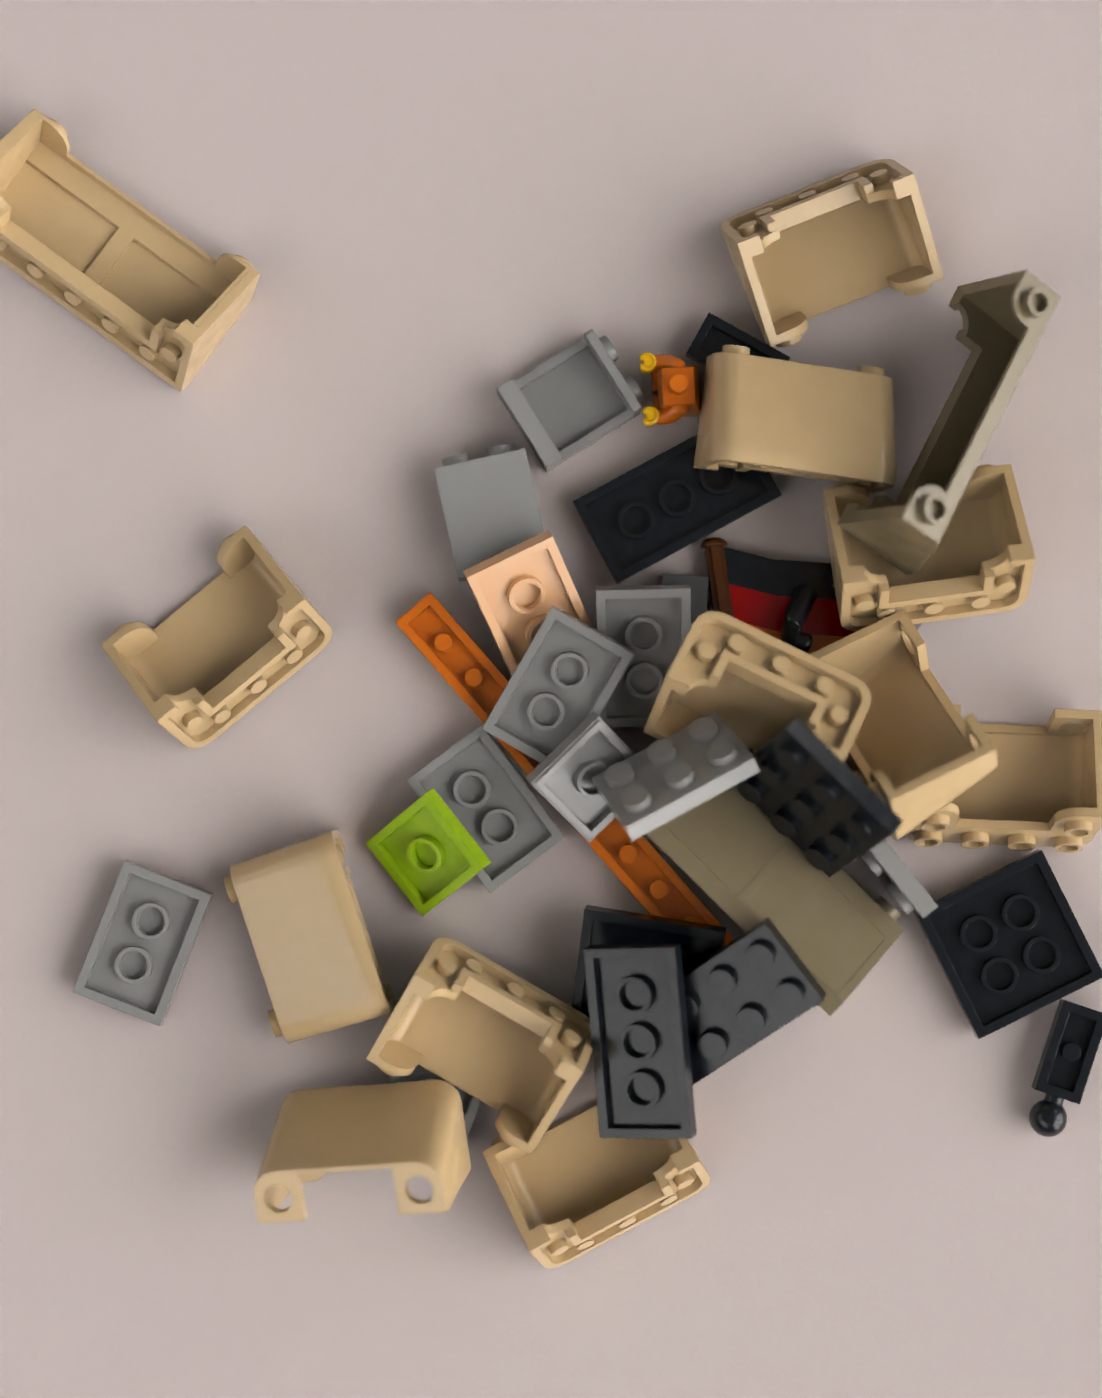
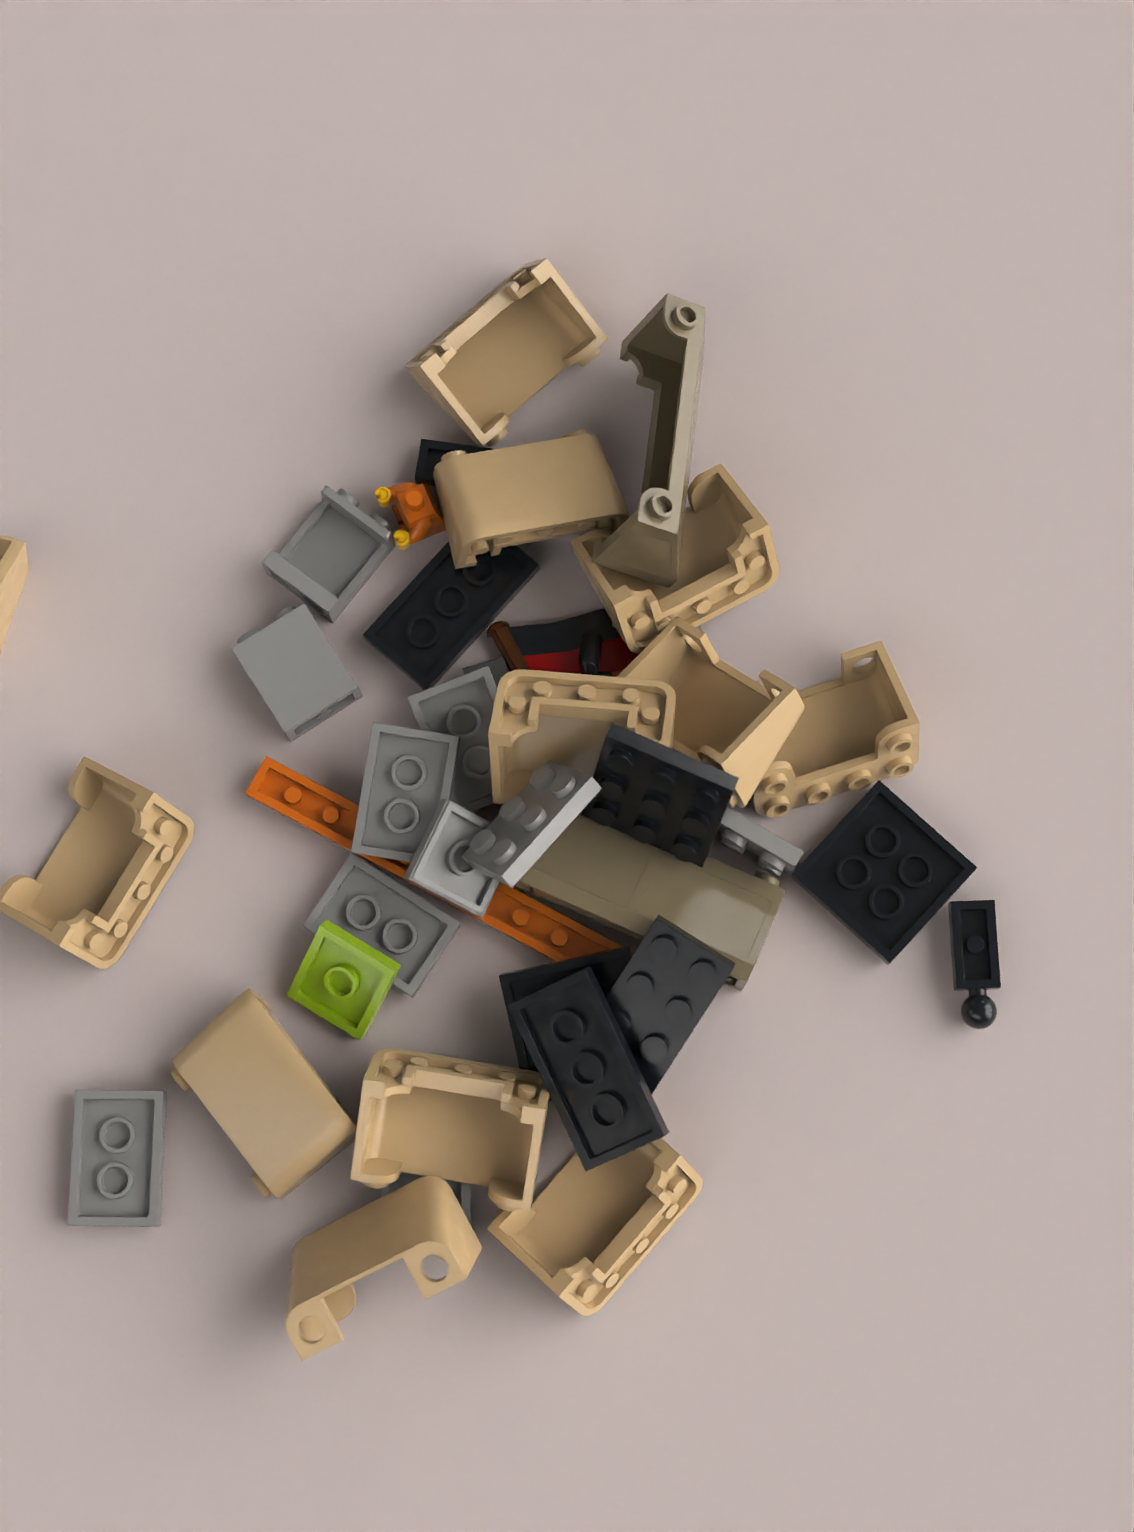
camera: 15 degrees left, 10 degrees down
(519, 590) = (339, 722): light nougat plate -> none

